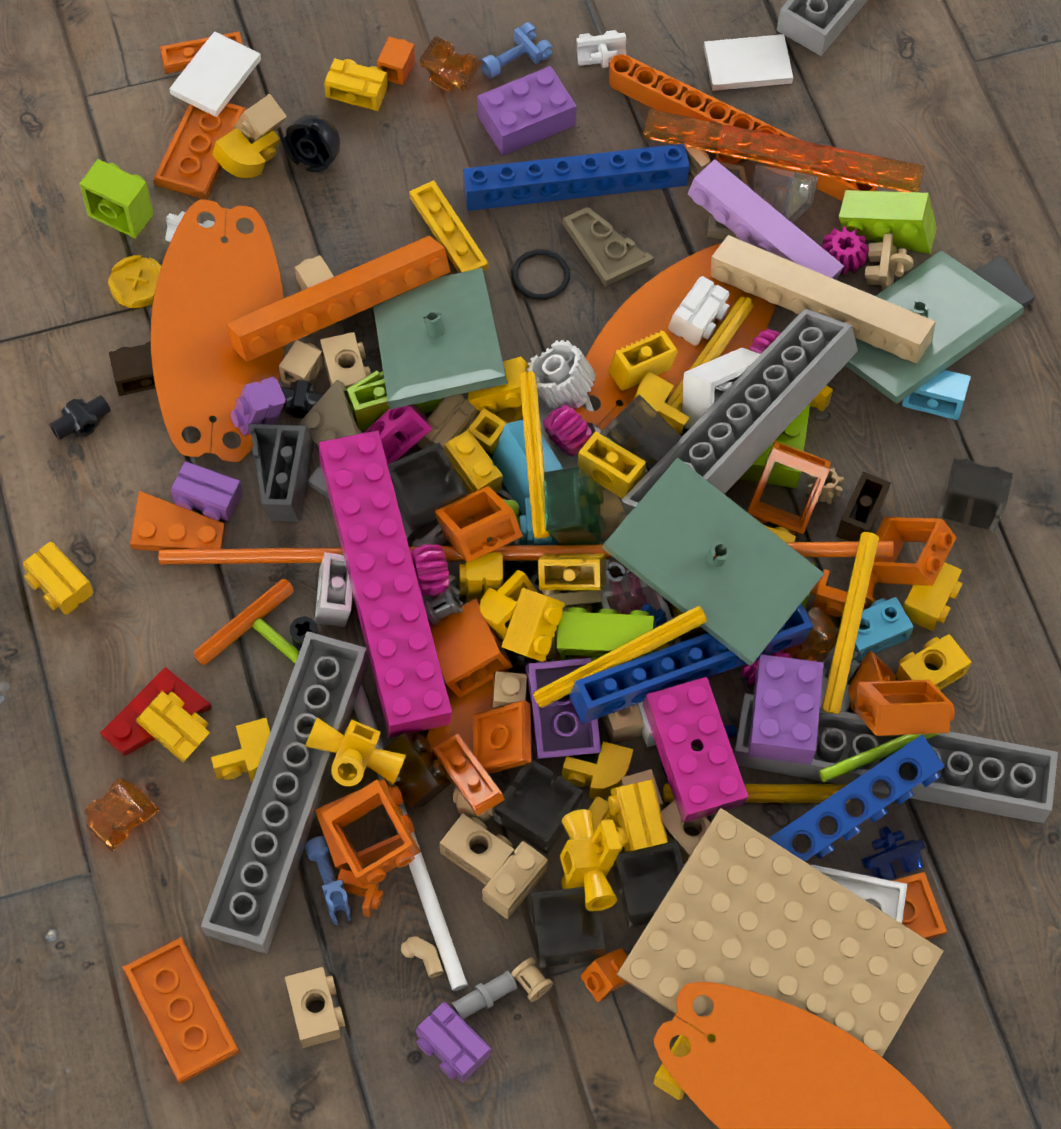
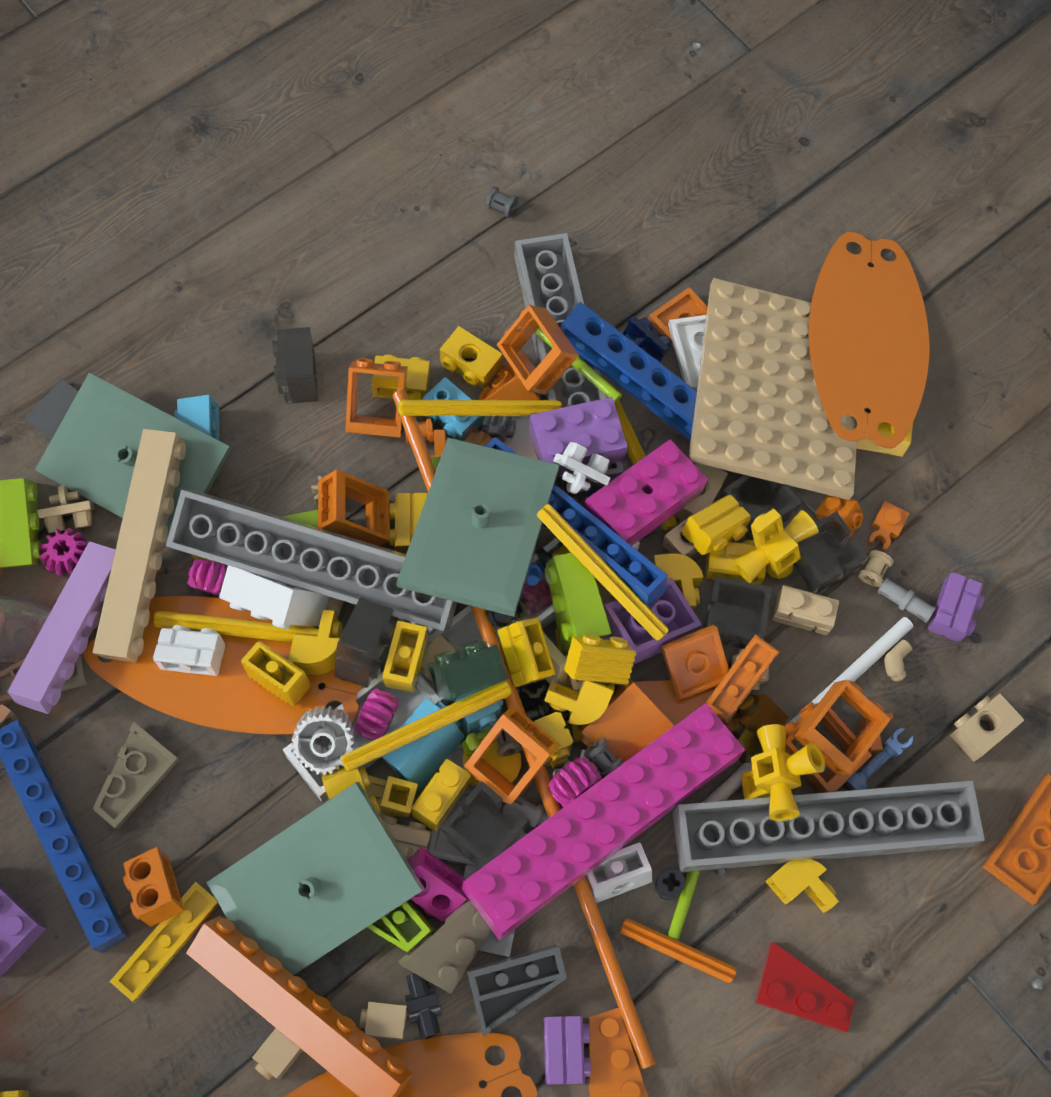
camera: 115 degrees left, 5 degrees up
(119, 813) = (908, 972): clear orange cylinder -> none
(173, 725) = (816, 960): yellow brick -> none
(258, 404) = (459, 1035): medium lavender brick -> none
(344, 351) = (361, 992): tan brick -> none
(471, 831) = (801, 636): tan brick -> none
(497, 228) = (158, 884): none -> orange brick
(508, 688) = (652, 673): tan brick -> none
(540, 252) = (168, 808): black piece -> none
(579, 1025) = (888, 524): none -> orange plate
(739, 683) = (593, 471): none -> white hips
(863, 507) = (344, 449): dark brown brick -> none

